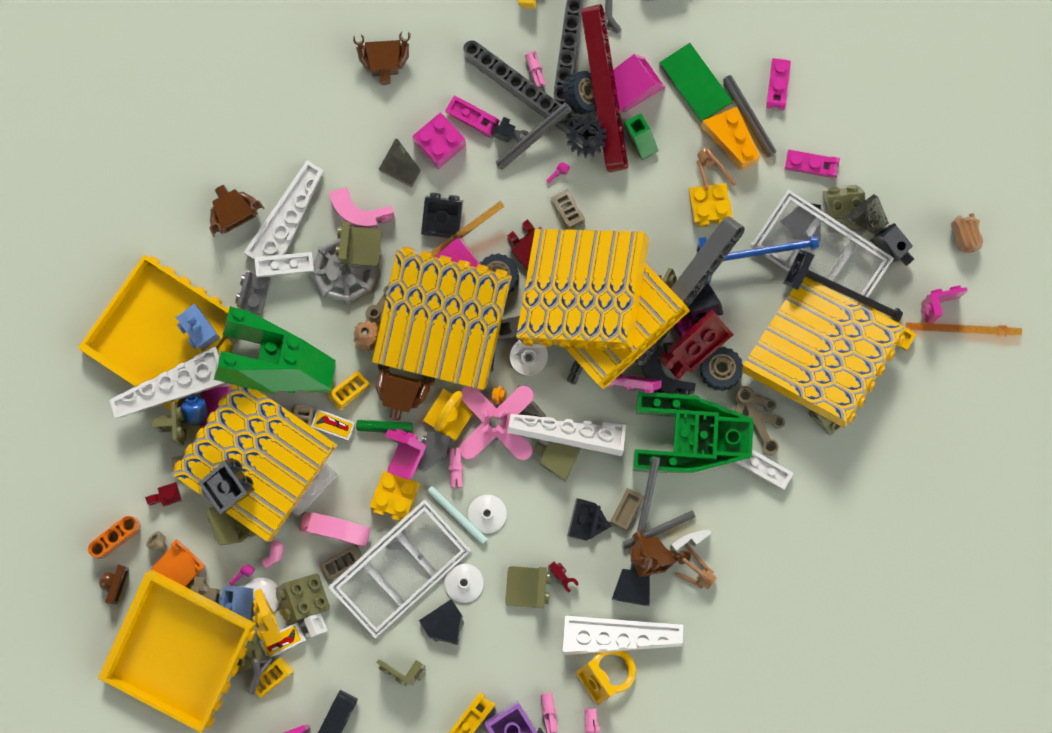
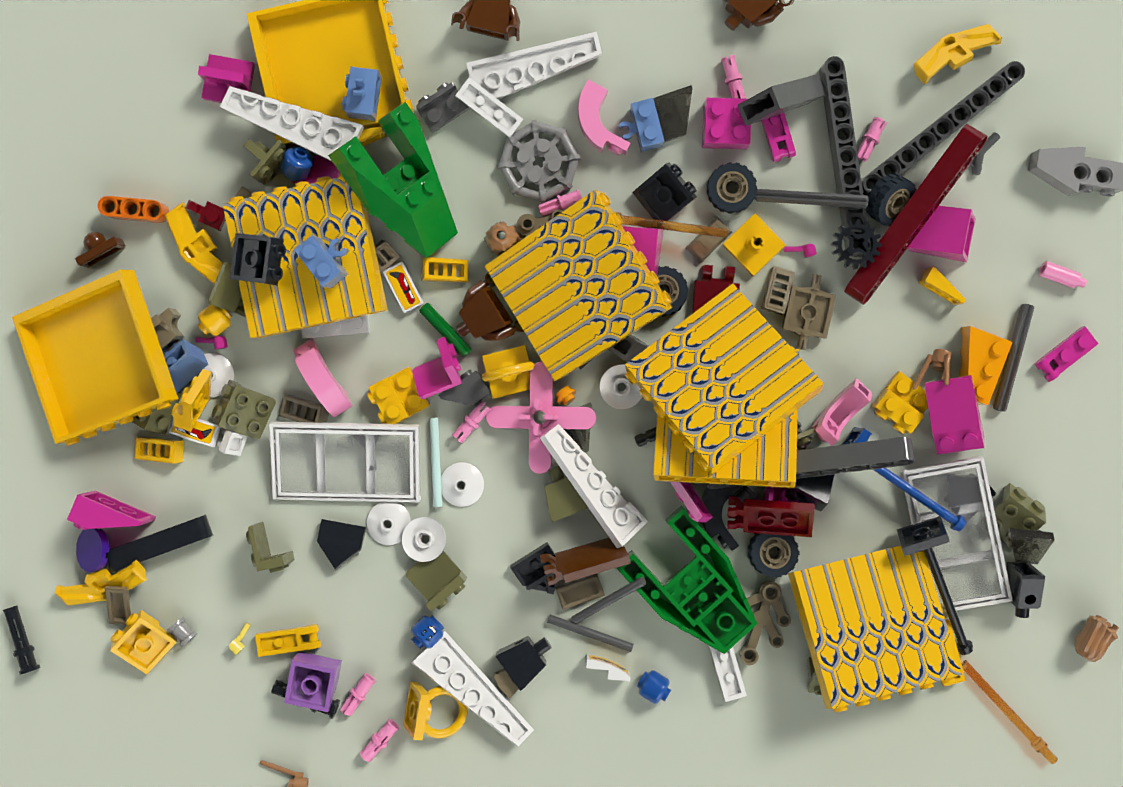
camera: 45 degrees right, 10 degrees up
(95, 401) = (222, 73): none -> dark pink bracket
(156, 541) = (165, 246): dark tan tile -> none
(176, 524) = (193, 246): none -> yellow plate
(179, 564) = (165, 285): orange piece -> none
(231, 557) = (214, 320): none -> yellow head
(258, 670) = (150, 435): dark grey piece -> none
(269, 446) = (323, 260): none -> medium blue brick
(275, 554) = (255, 351): bright pink arm -> none
(358, 245) = (568, 151): olive bracket -> none
(382, 281) = (561, 203): none -> bright pink axle
(390, 187) = (644, 125): none -> medium blue brick
(416, 110) = (733, 77): none -> bright pink pin
(458, 95) = (781, 99): none -> dark grey slope
(476, 164) = (734, 174): none -> black wheel
(489, 562) = (413, 536): none -> white dish
(496, 224) = (704, 245): none -> dark tan tile
(507, 131) = (792, 171): black piece -> none
(526, 196) = (753, 244): none -> yellow tile
(554, 627) = (427, 632): none -> blue head
(559, 571) = (474, 590): dark red plate -> none
(599, 204) = (809, 312): none -> dark tan plate
(609, 483) = (584, 561): none -> reddish brown tile
(636, 612) = (505, 682): none -> dark tan piece
(641, 136) = (903, 287): green slope -> none
(652, 556) = (562, 654): reddish brown torso -> none
(662, 115) = (938, 284): none -> yellow slope
(677, 242) = (841, 410): none -> bright pink arch
(695, 82) = (997, 283): green tile -> none
(705, 578) = (589, 709): medium nougat plant -> none
(729, 41) = (1061, 275): none -> bright pink cylinder
(731, 523) = (654, 687): none -> blue head
(746, 181) = (954, 415): none -> dark pink slope
(811, 163) = (1024, 450): dark pink plate -> none
(931, 304) = (1004, 672): dark pink bracket -> none

